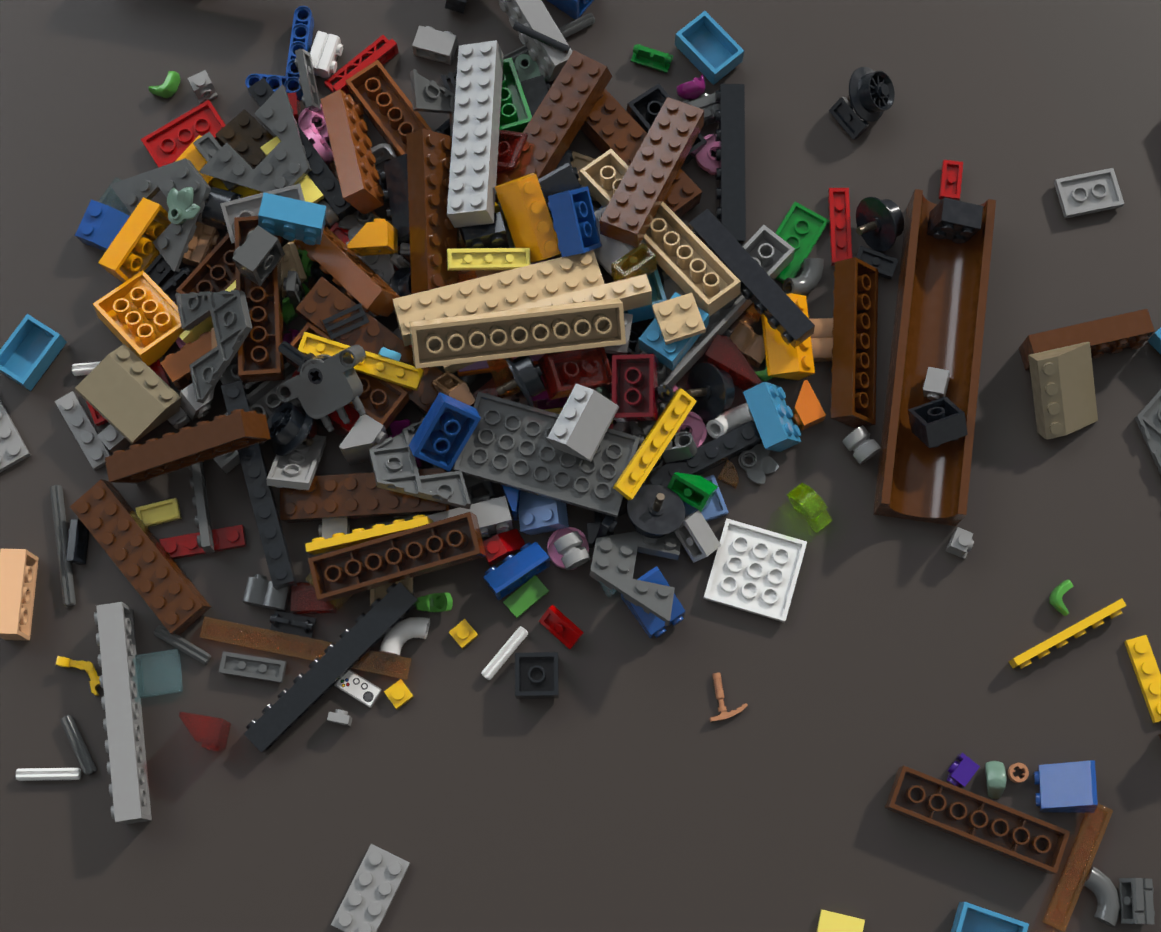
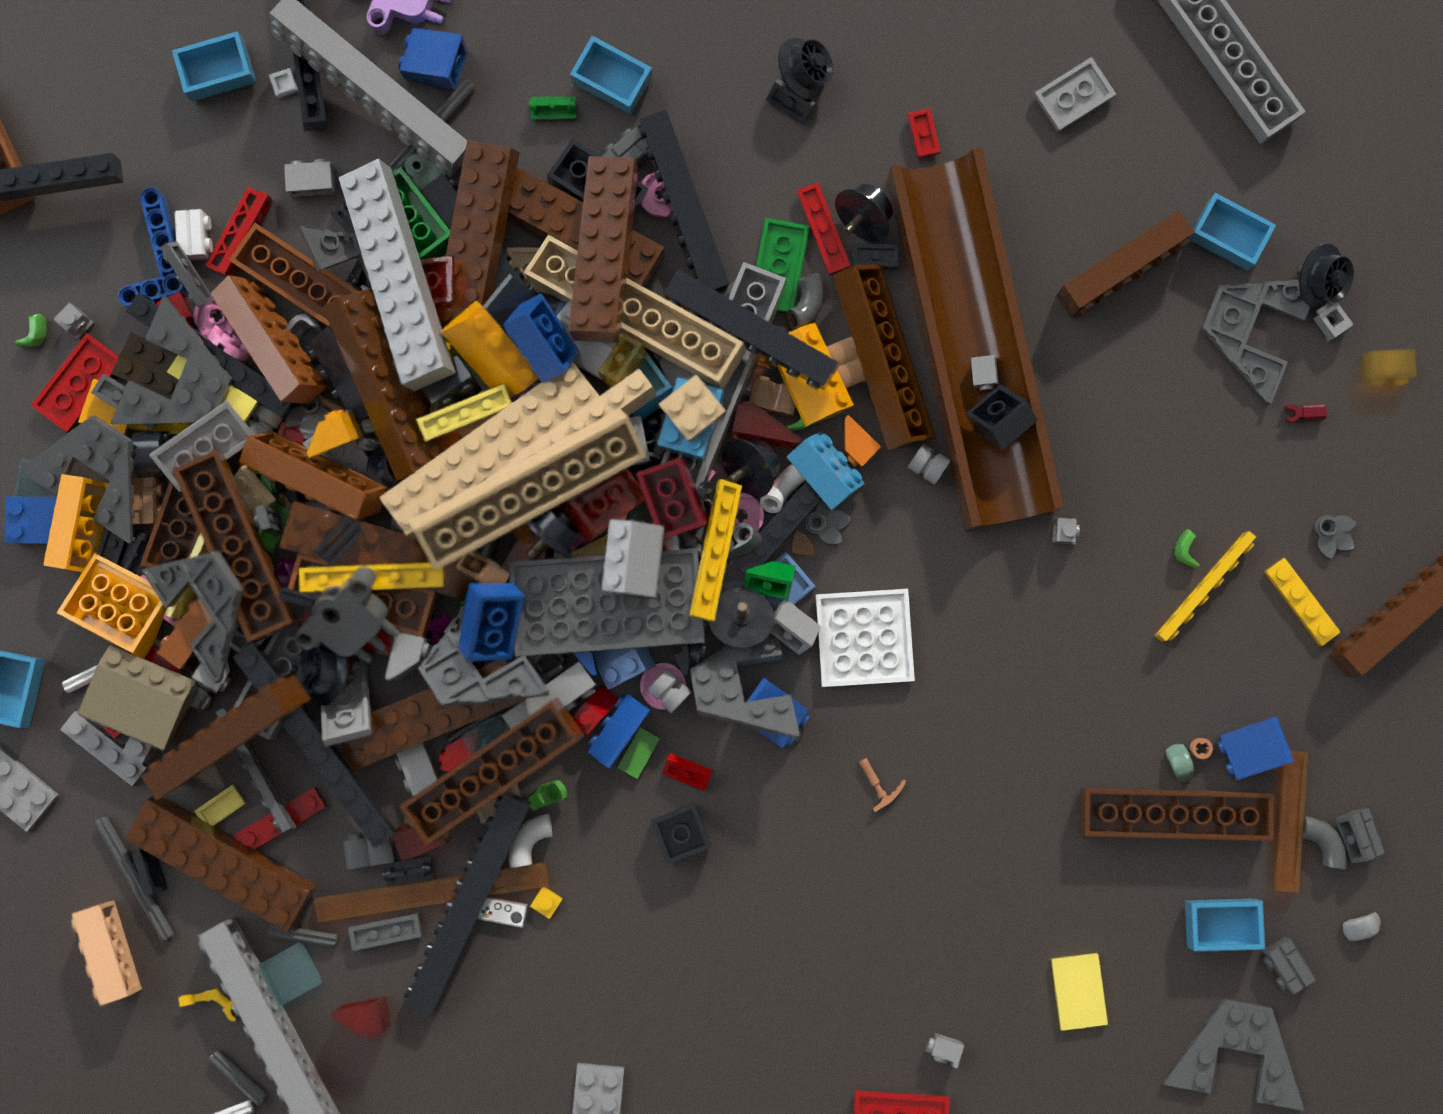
camera: 20 degrees left, 10 degrees up
(181, 202) = (107, 468): sand green plate -> none
(258, 255) = (216, 506): dark grey brick -> none
(292, 218) = (236, 452): dark azure piece -> none
(340, 717) = (496, 950): light grey plate -> none
(360, 535) = (460, 750): yellow plate -> none
(389, 354) = (405, 558): medium azure tile -> none
(463, 633) = (588, 815): yellow plate -> none
(504, 653) = (639, 820): white axle -> none
(541, 37) = (426, 137): black bar -> none
(692, 89) = (609, 129): magenta hair -> none
(810, 505) = (897, 550): clear neon green brick -> none
(954, 220) = (945, 185): black brick -> none
(961, 771) = (1144, 769): dark purple brick -> none
(1063, 390) = (1119, 330): dark tan slope -> none

